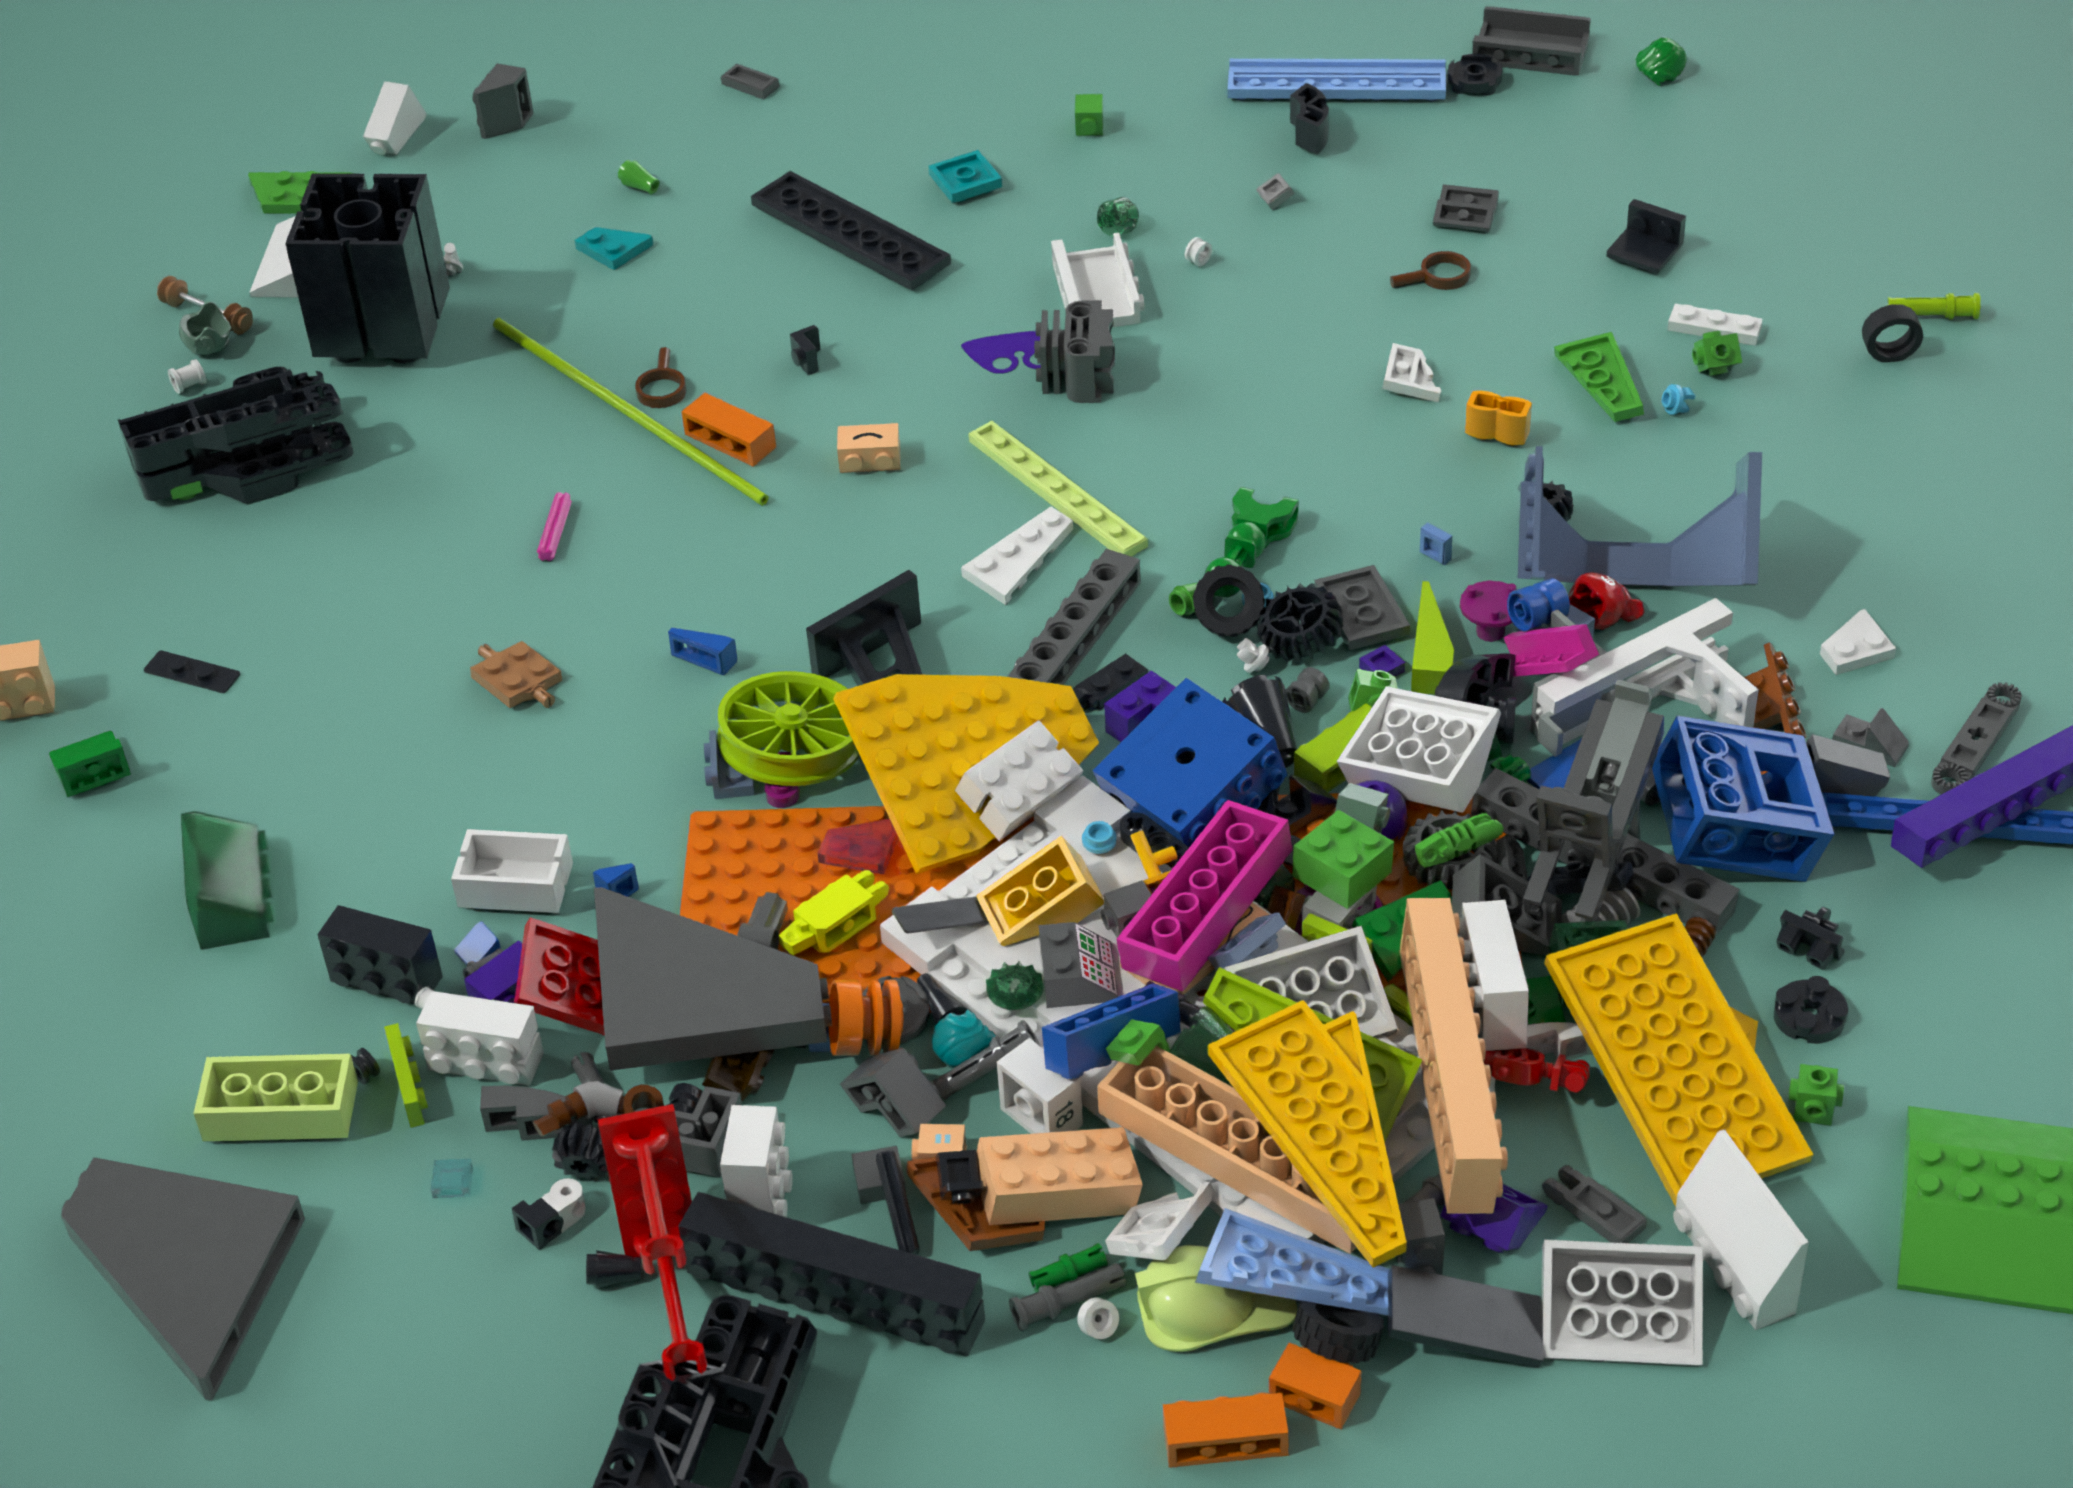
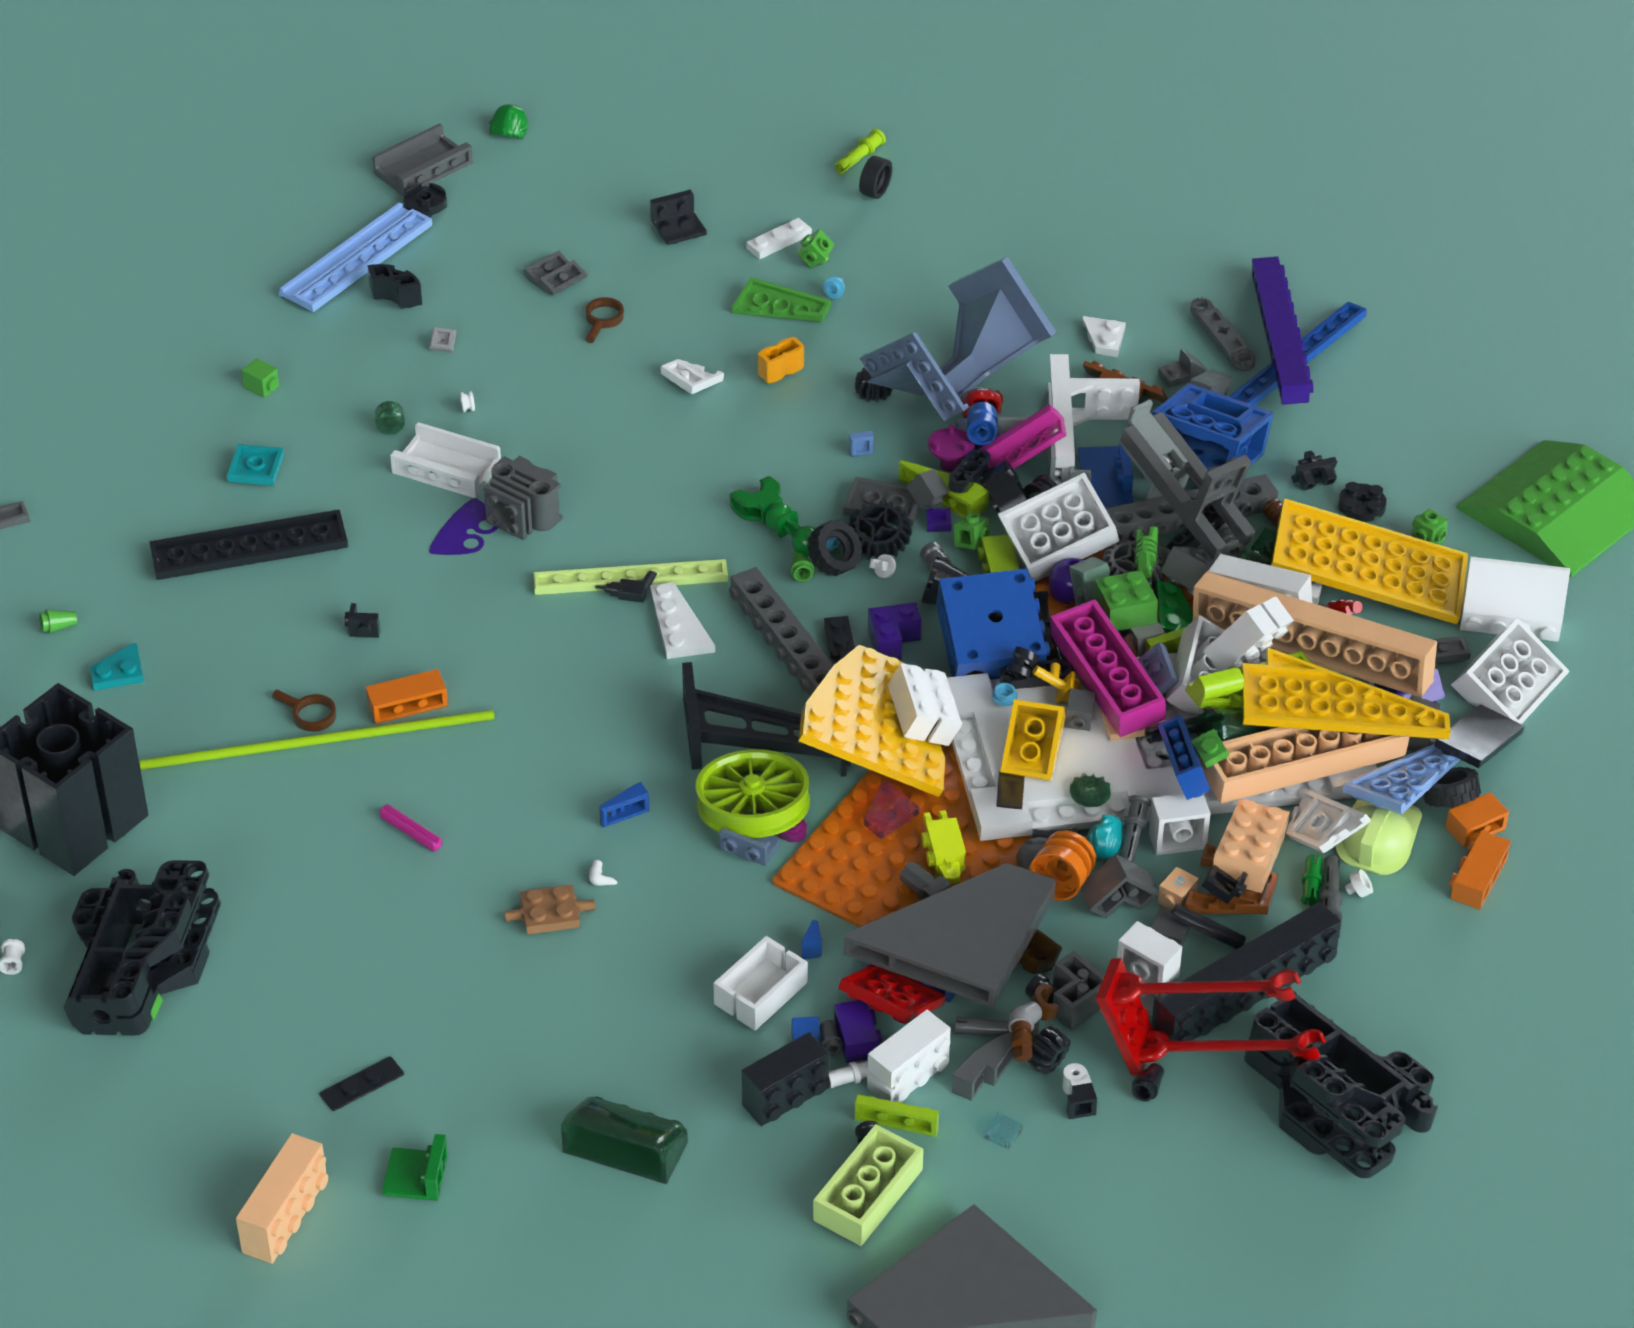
camera: 60 degrees left, 0 degrees up
(592, 681) = (595, 875): none -> white animal
(868, 448) = (502, 639): light nougat brick -> none
(1031, 496) = (630, 589): none -> black piece
(1076, 965) = (1100, 756): dark grey slope -> none
(1137, 817) = (1022, 663): none -> black wheel
(1233, 991) = (1217, 684): none -> lime brick
(1335, 985) = (1249, 635): none -> white piece
(1400, 624) = (928, 489): none -> dark grey brick
(1430, 638) = (968, 471): none -> black beam

